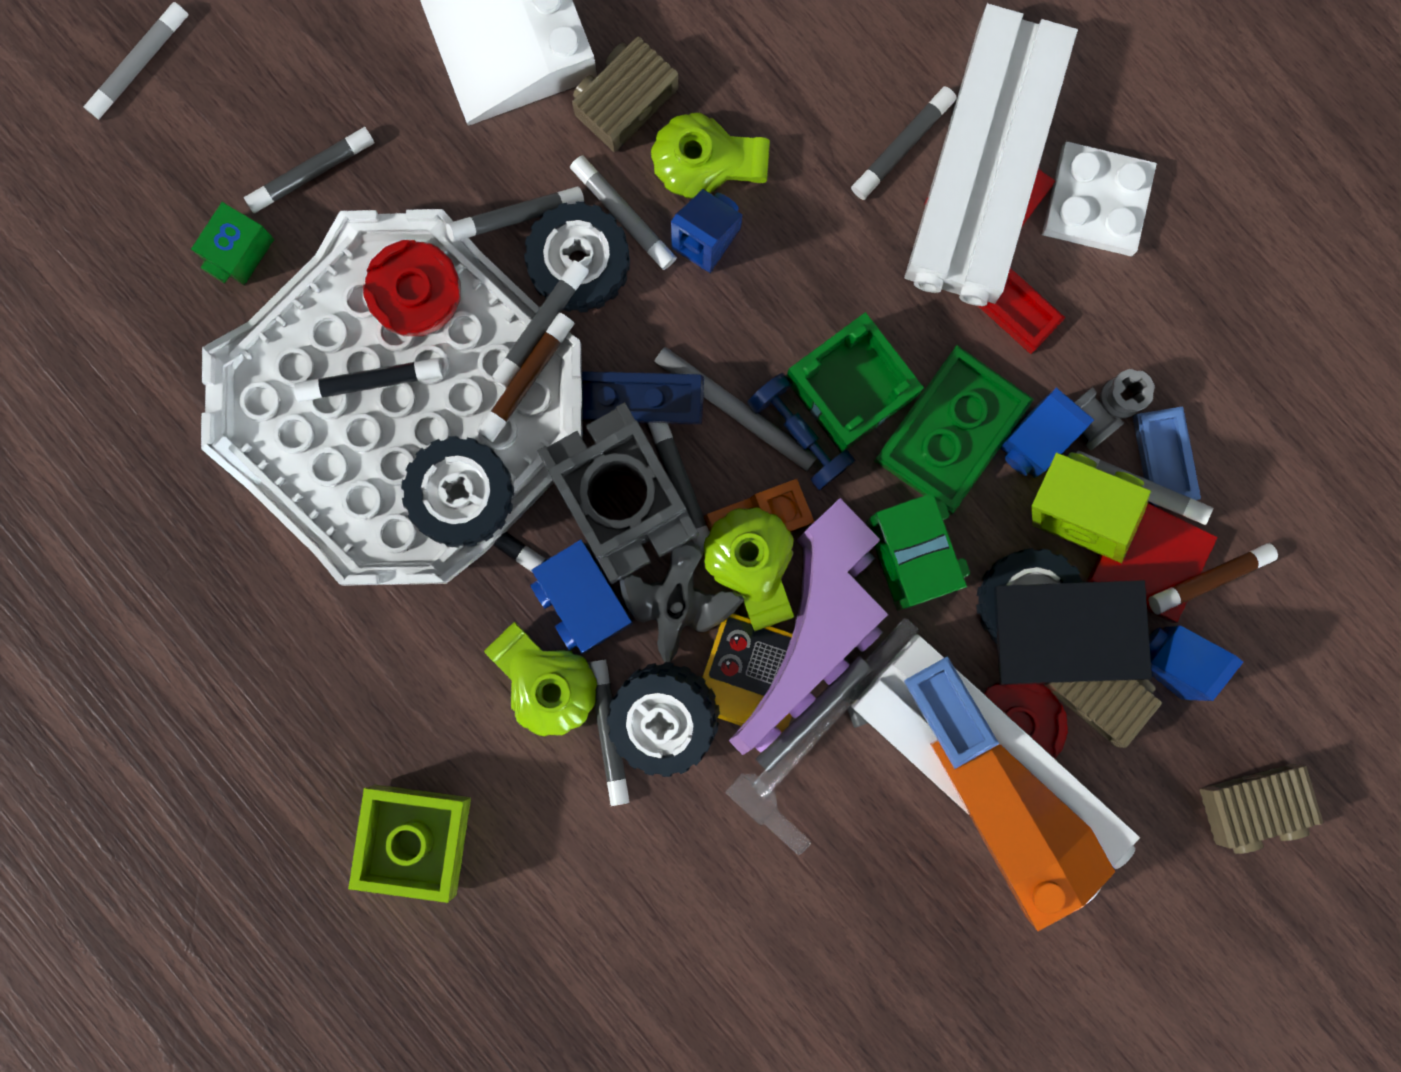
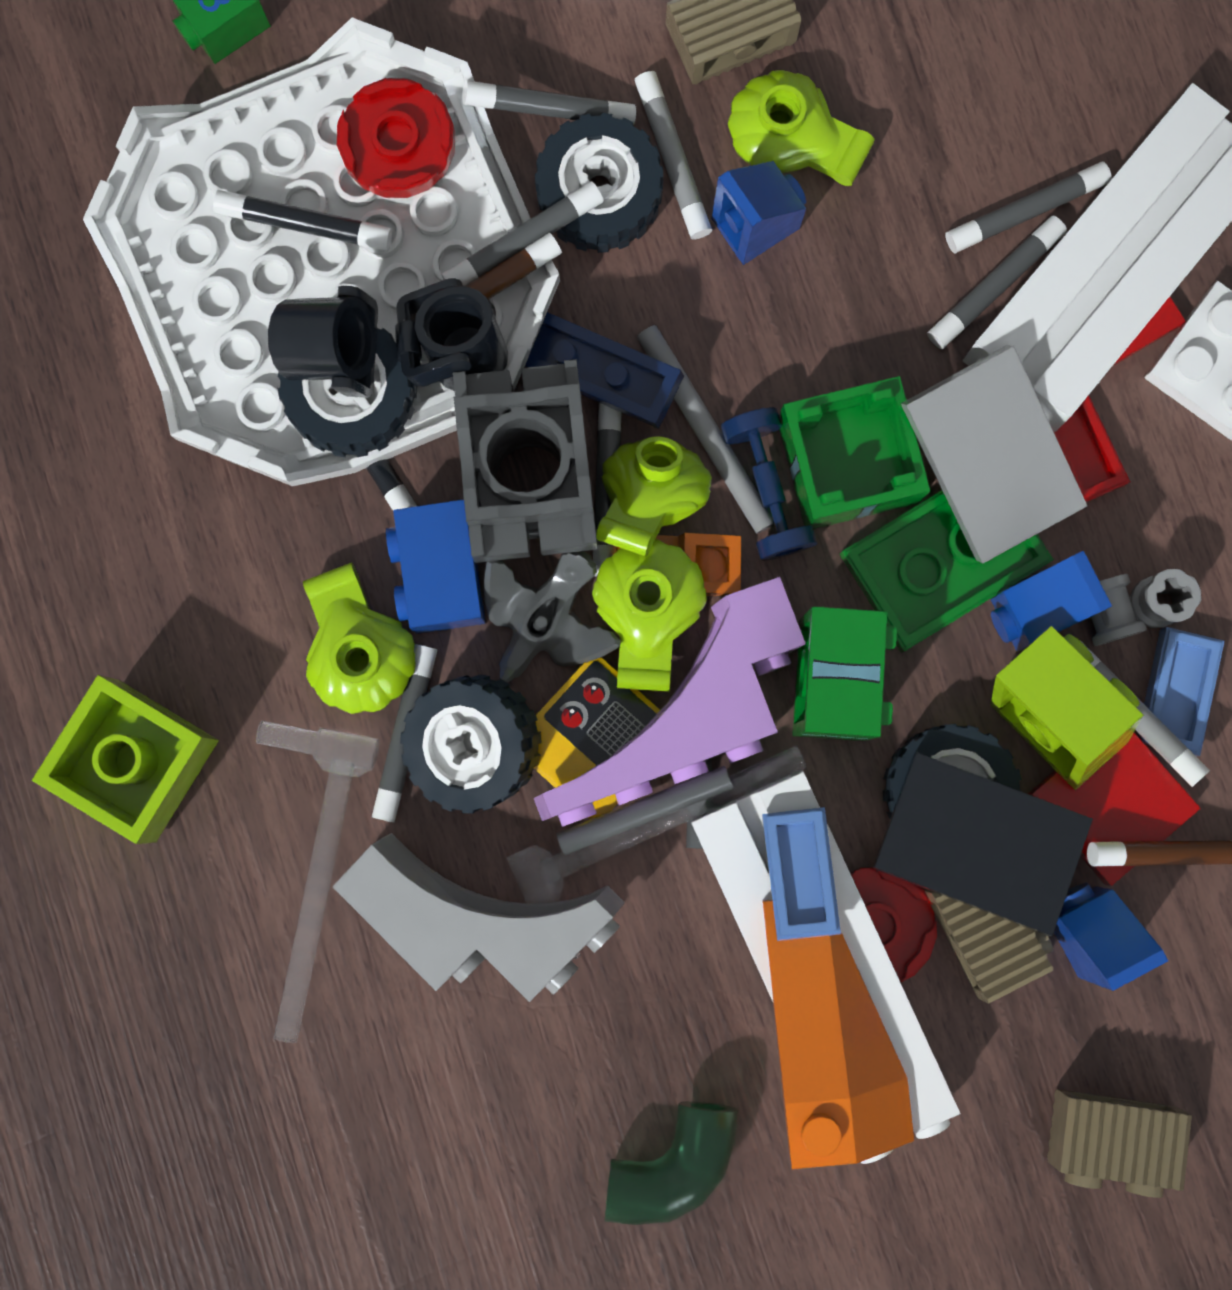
camera: 30 degrees right, 0 degrees up
(432, 466) = (327, 340): none -> black piece
(522, 417) = (454, 331): none -> black piece
(571, 770) = (343, 757): none -> clear bar
(710, 863) = (453, 930): none -> light grey arch
(715, 471) = (649, 488): none -> lime animal
(904, 209) = (997, 282): none -> dark grey bar
(957, 970) = (683, 1176): none -> clear green cylinder
(959, 340) = (994, 454): none -> light grey tile

